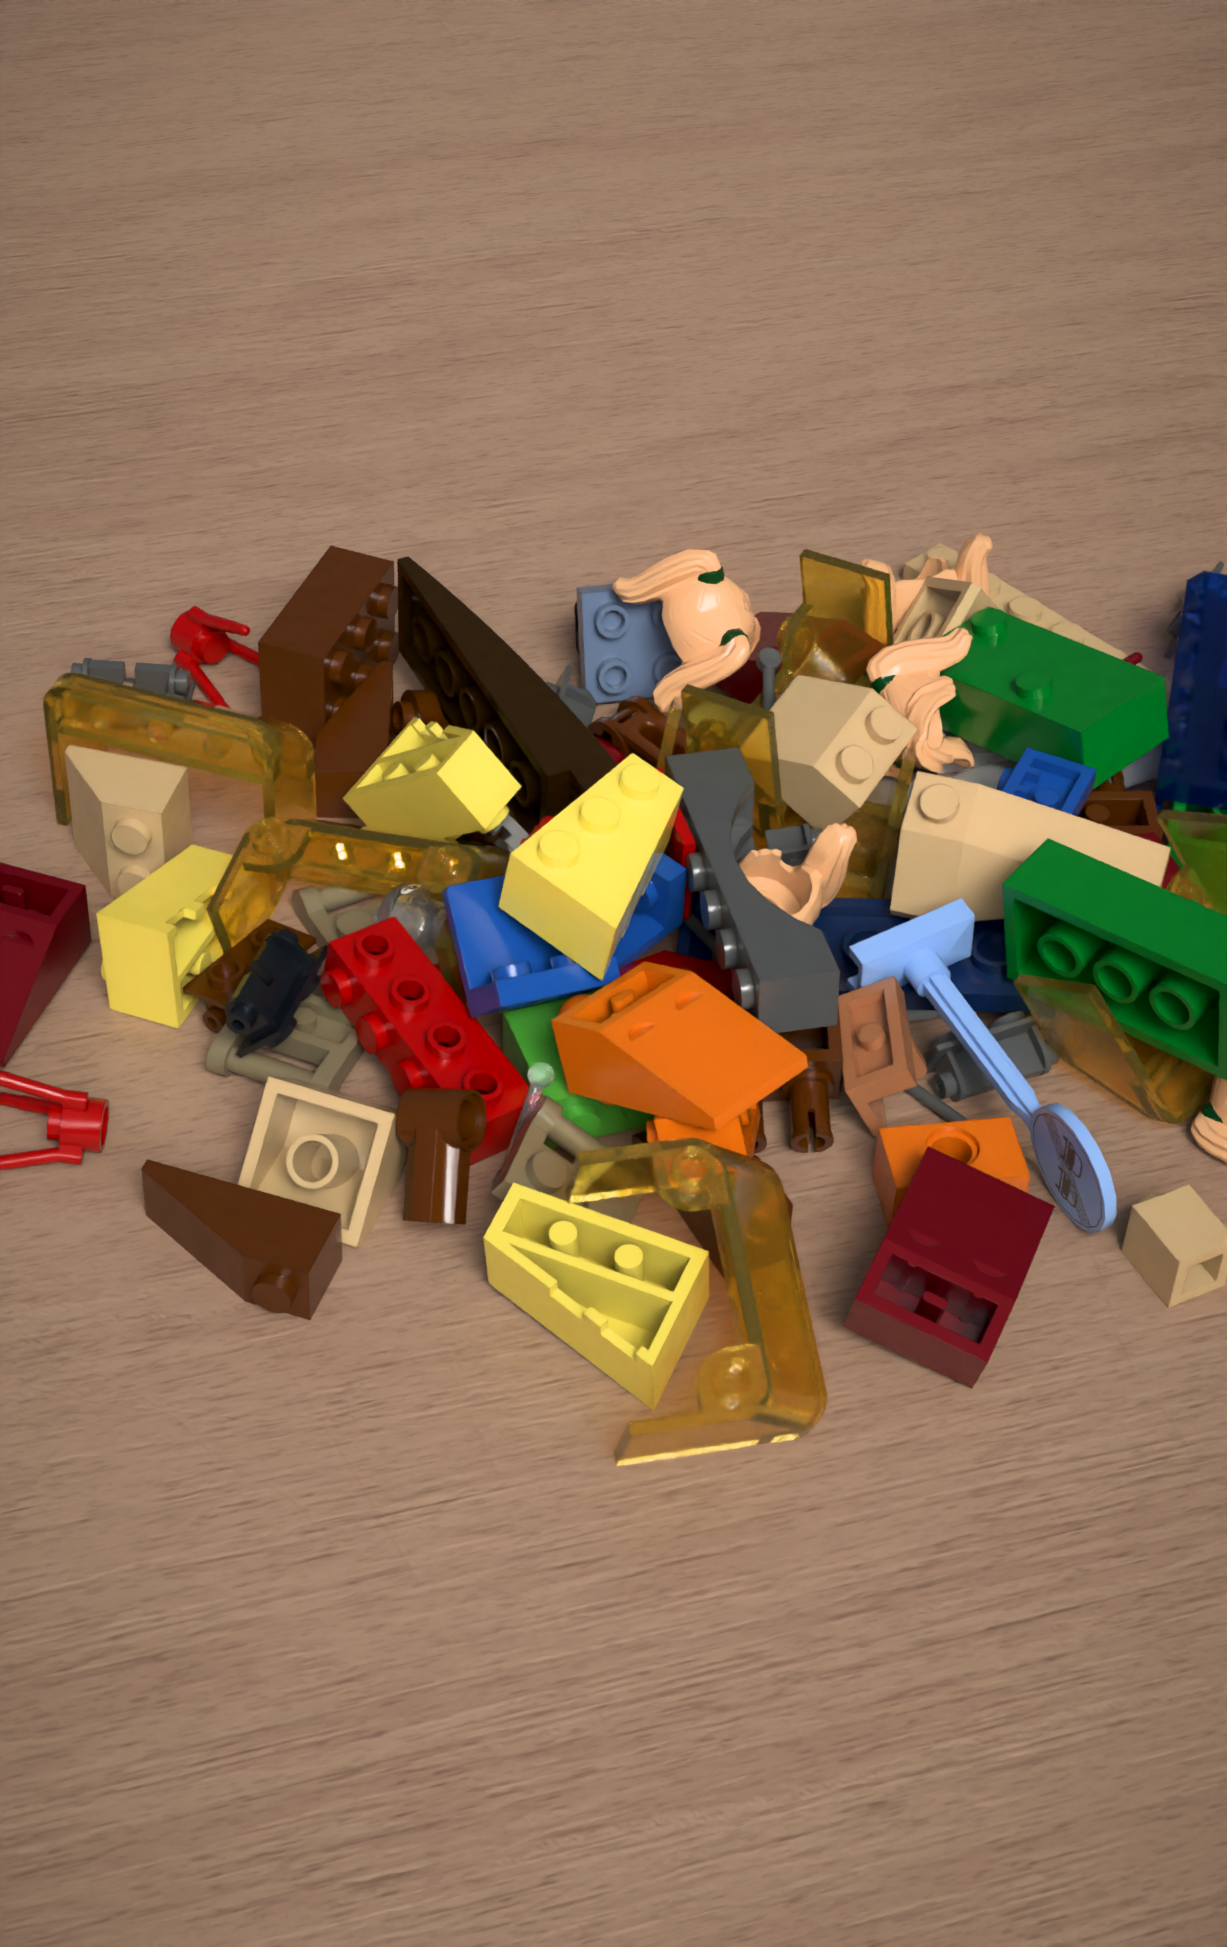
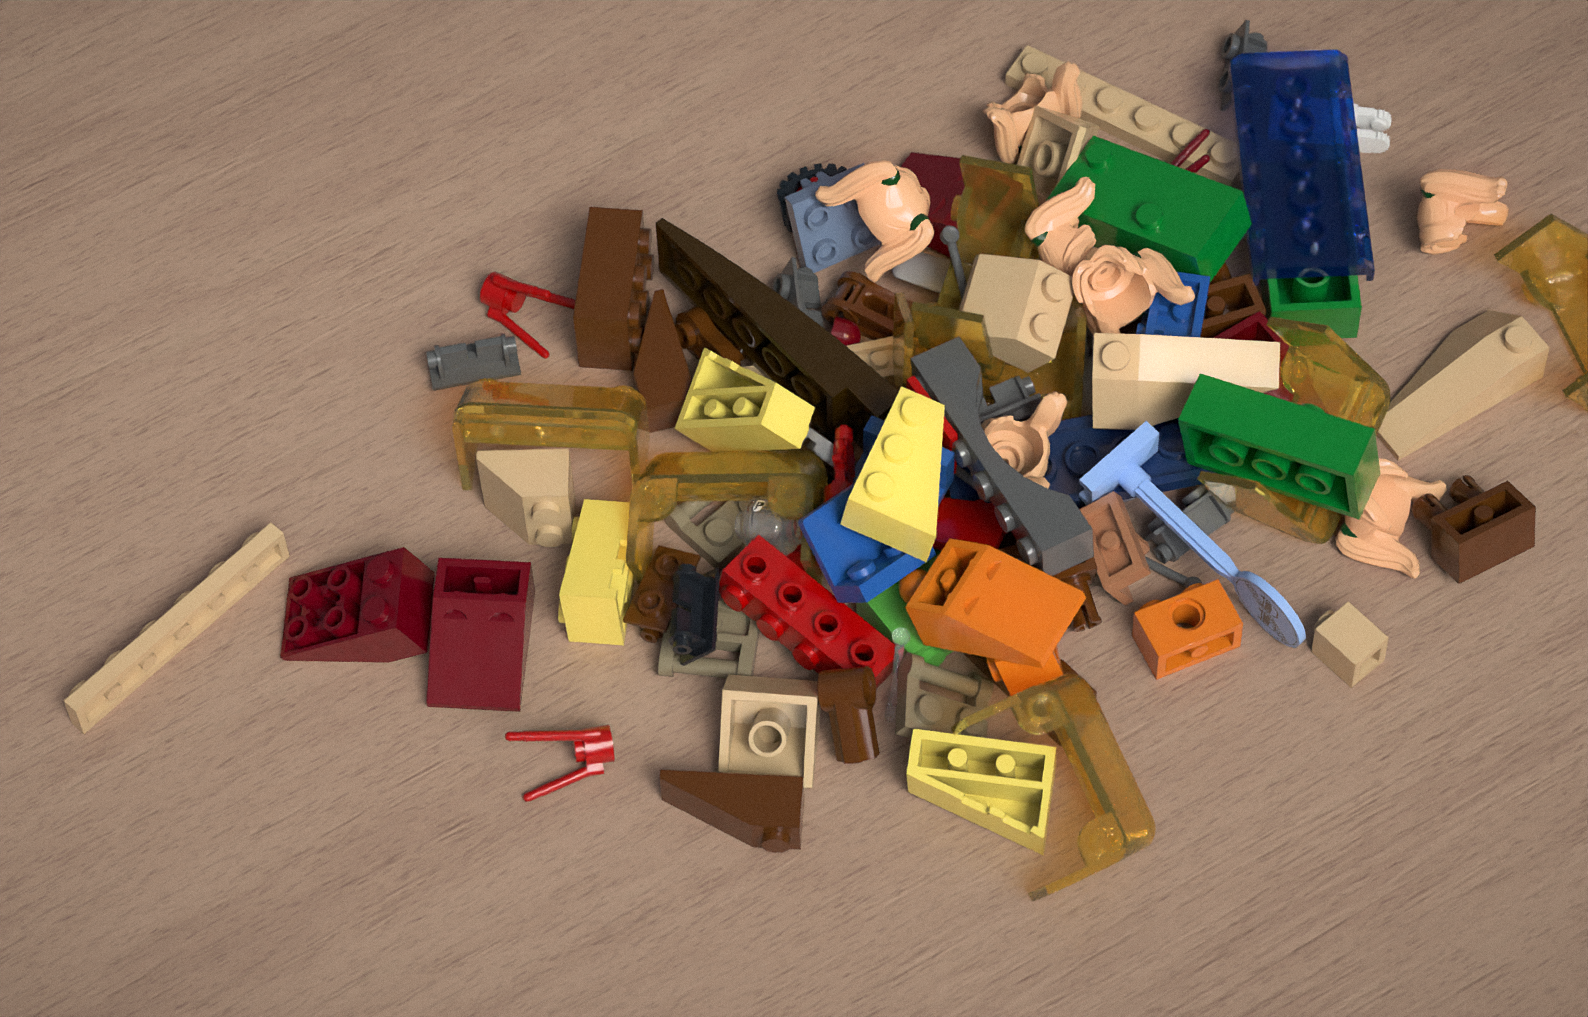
camera: 10 degrees left, 15 degrees up
(950, 1267) = (1210, 706): dark red slope -> none
(984, 744) = (1122, 286): none -> light nougat hair

